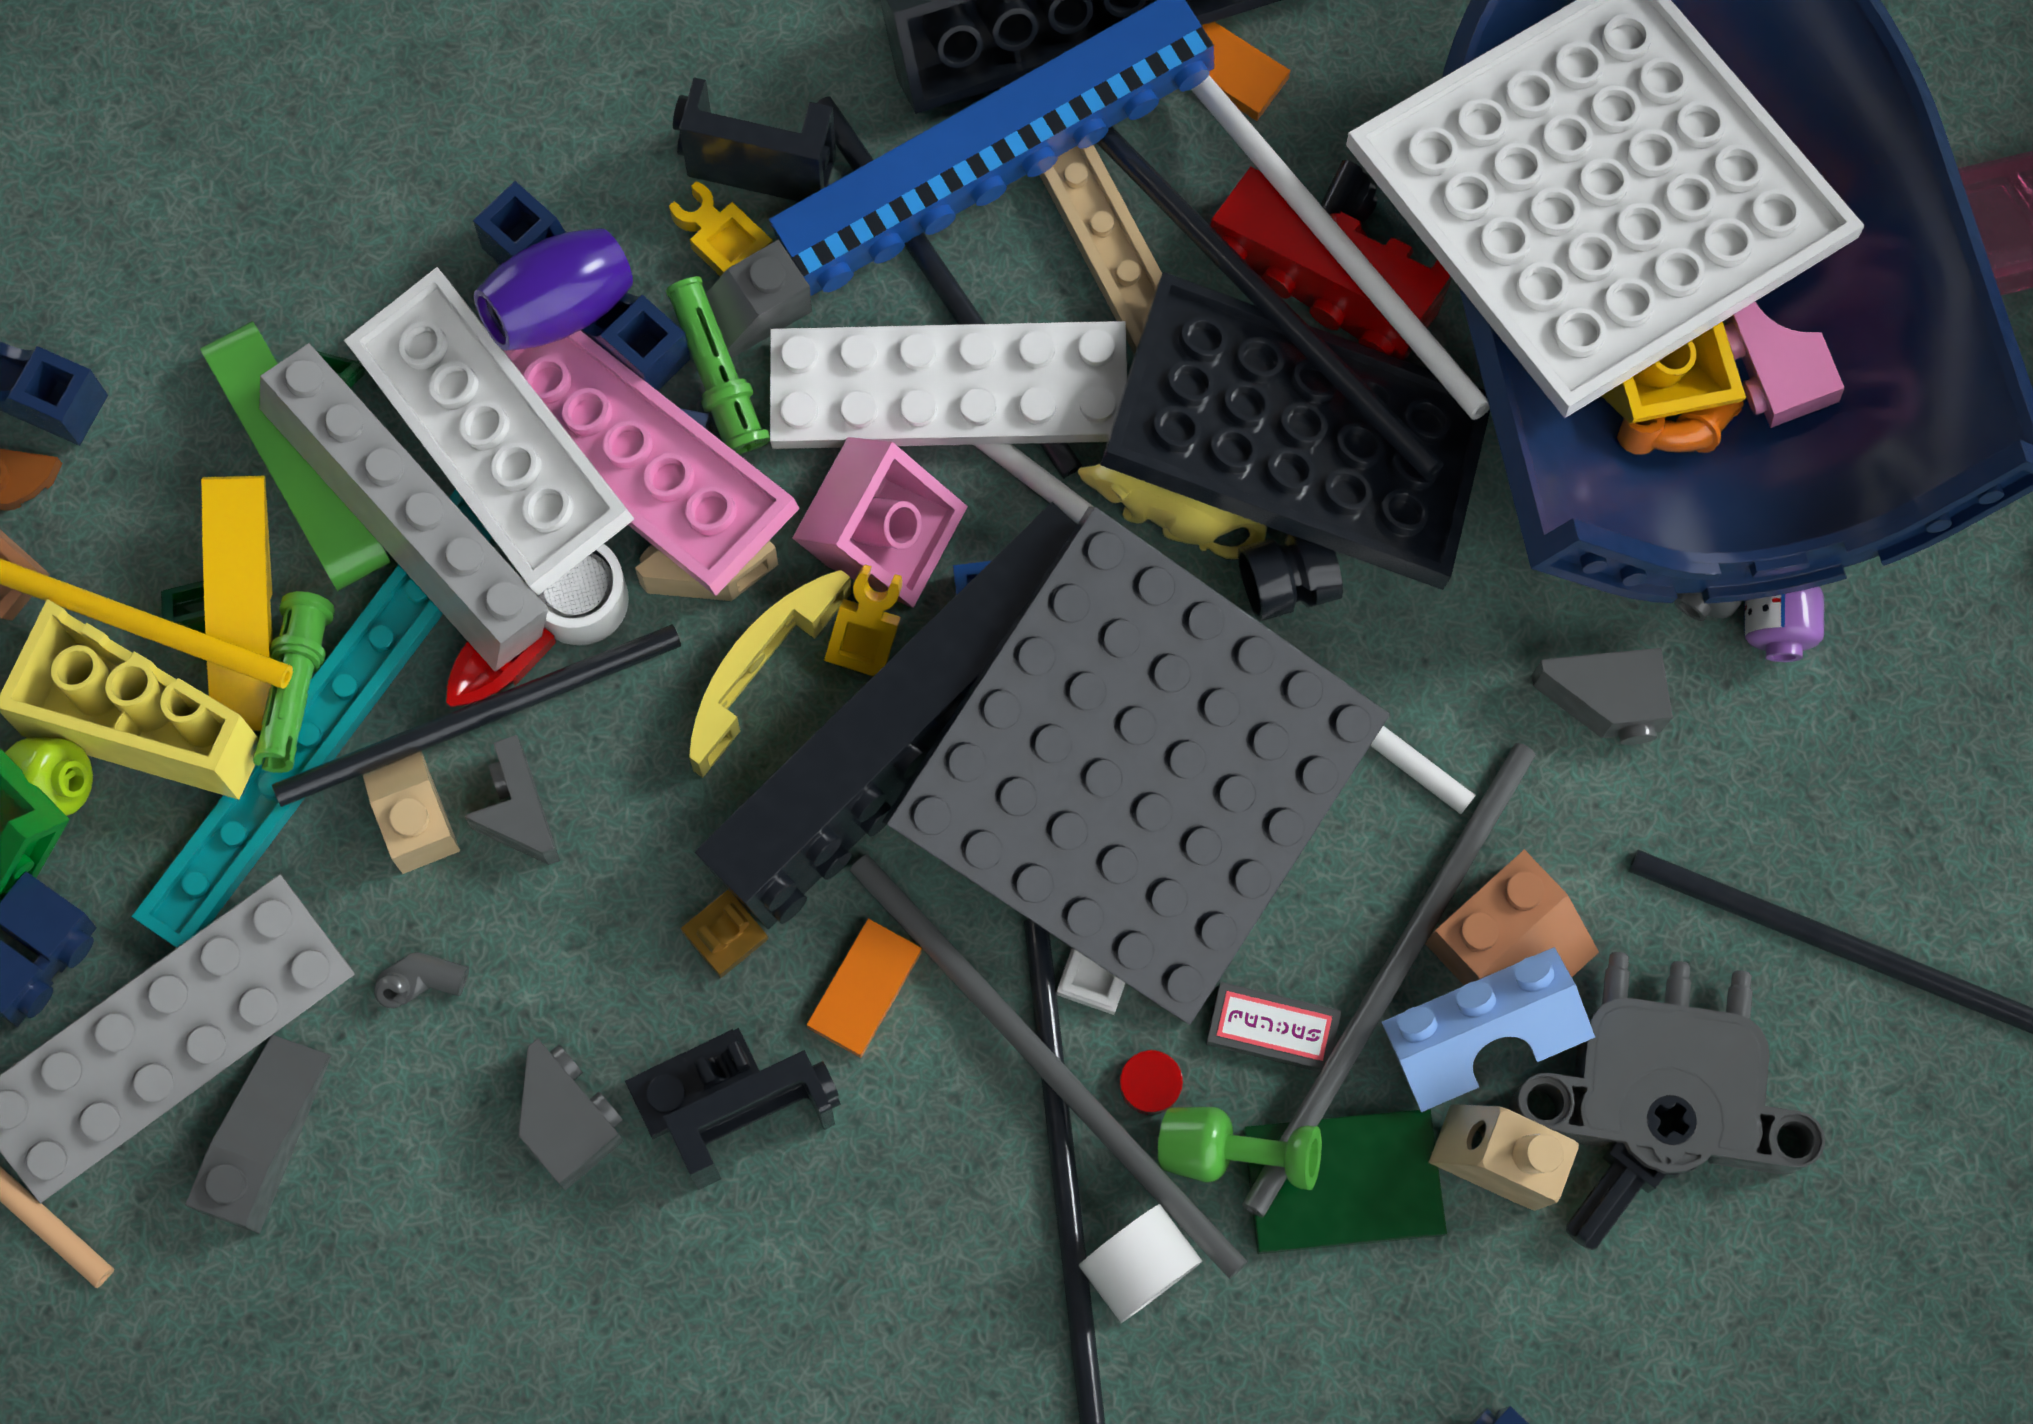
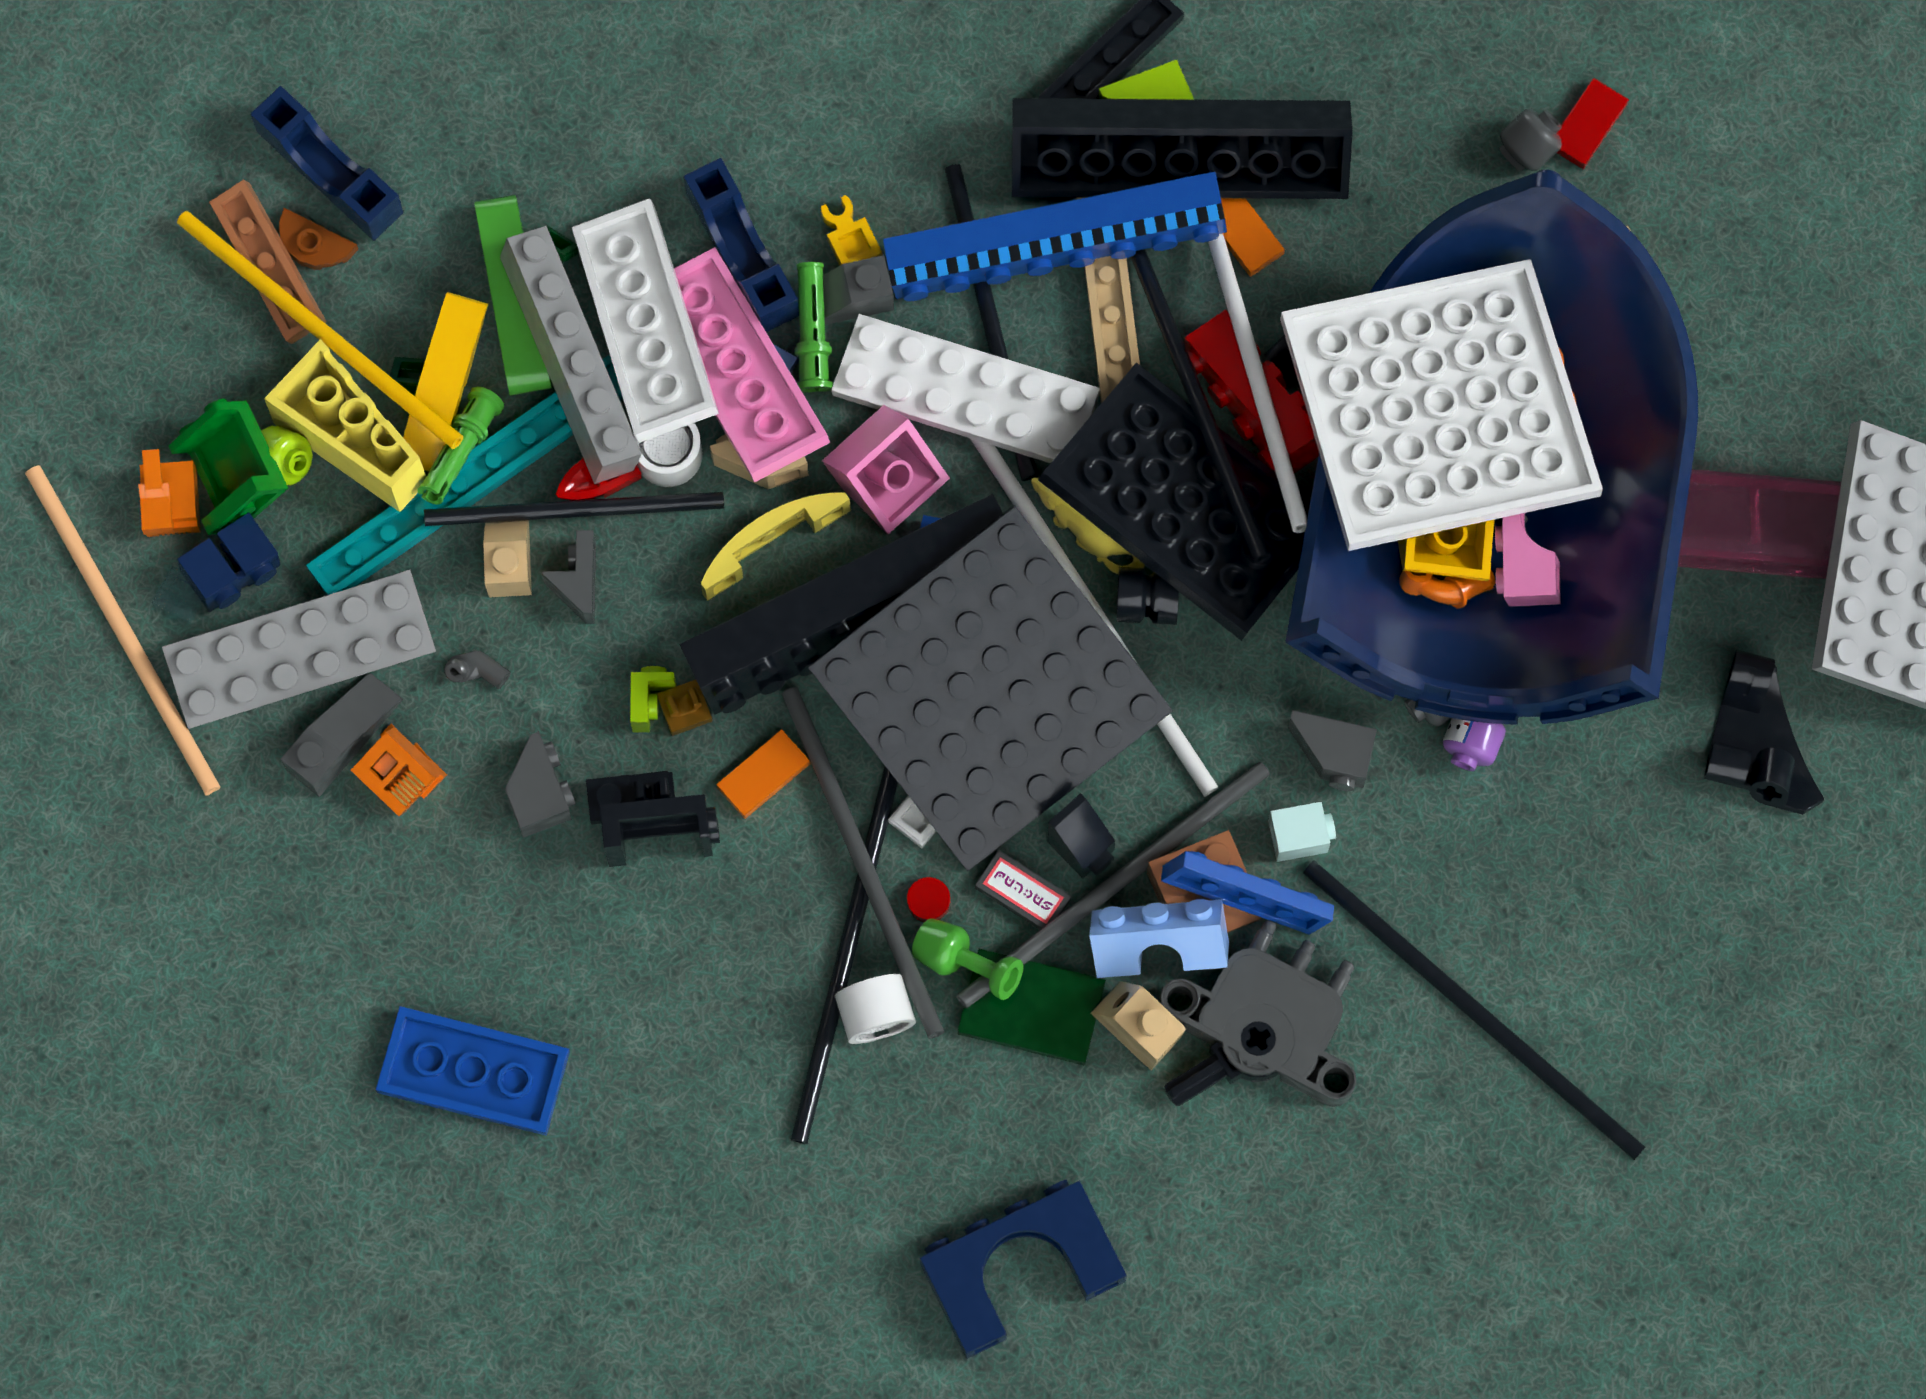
camera: 25 degrees right, 0 degrees up
(358, 1160) = (398, 771): none -> orange piece
(553, 289) = (720, 240): dark purple piece -> none
(668, 948) = (642, 703): none -> lime bracket
(755, 154) = (889, 192): black panel -> none
(862, 629) = (847, 536): yellow plate -> none
(1331, 928) = (1081, 838): none -> black slope
(1583, 925) = (1247, 892): none -> blue plate
(1609, 817) = (1301, 831): none -> light aqua brick

